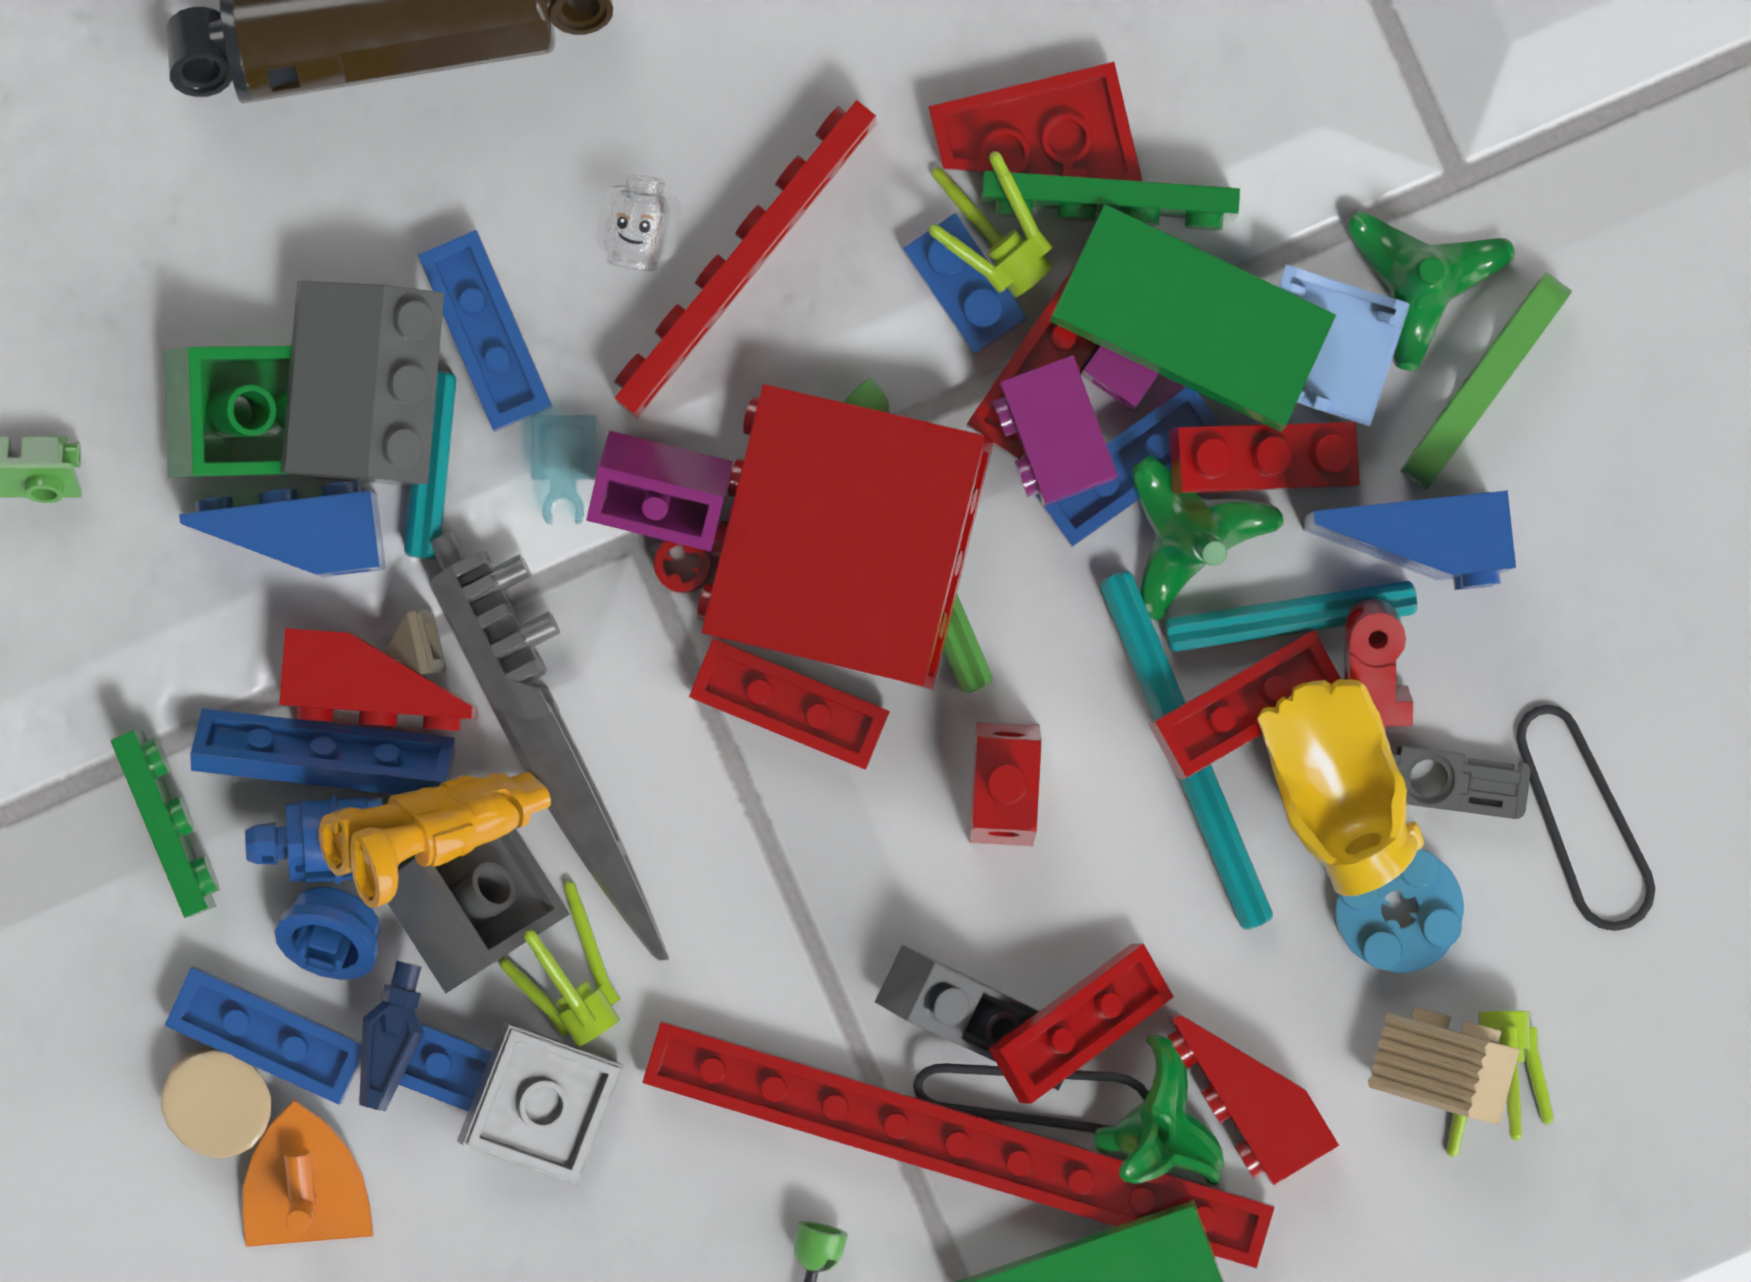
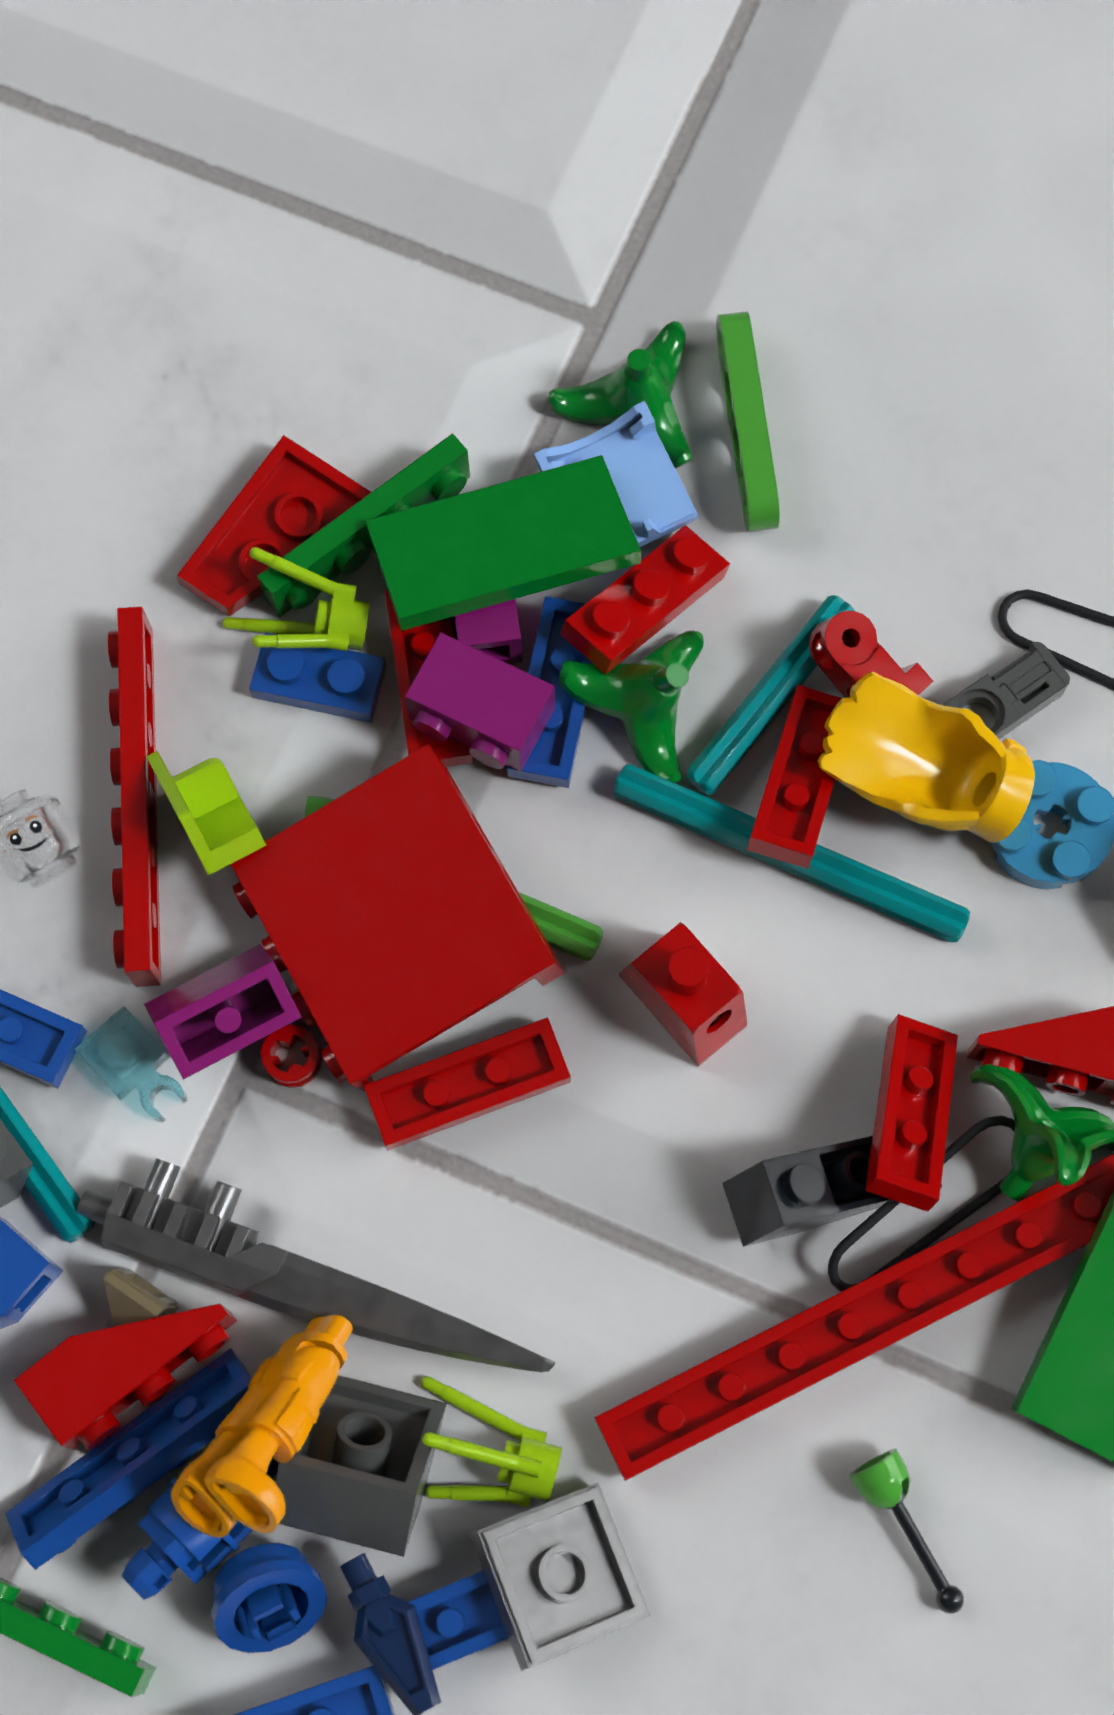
camera: 45 degrees left, 15 degrees down
(782, 330) = (210, 812): none -> lime panel
(1436, 537) = (811, 544): blue slope -> none

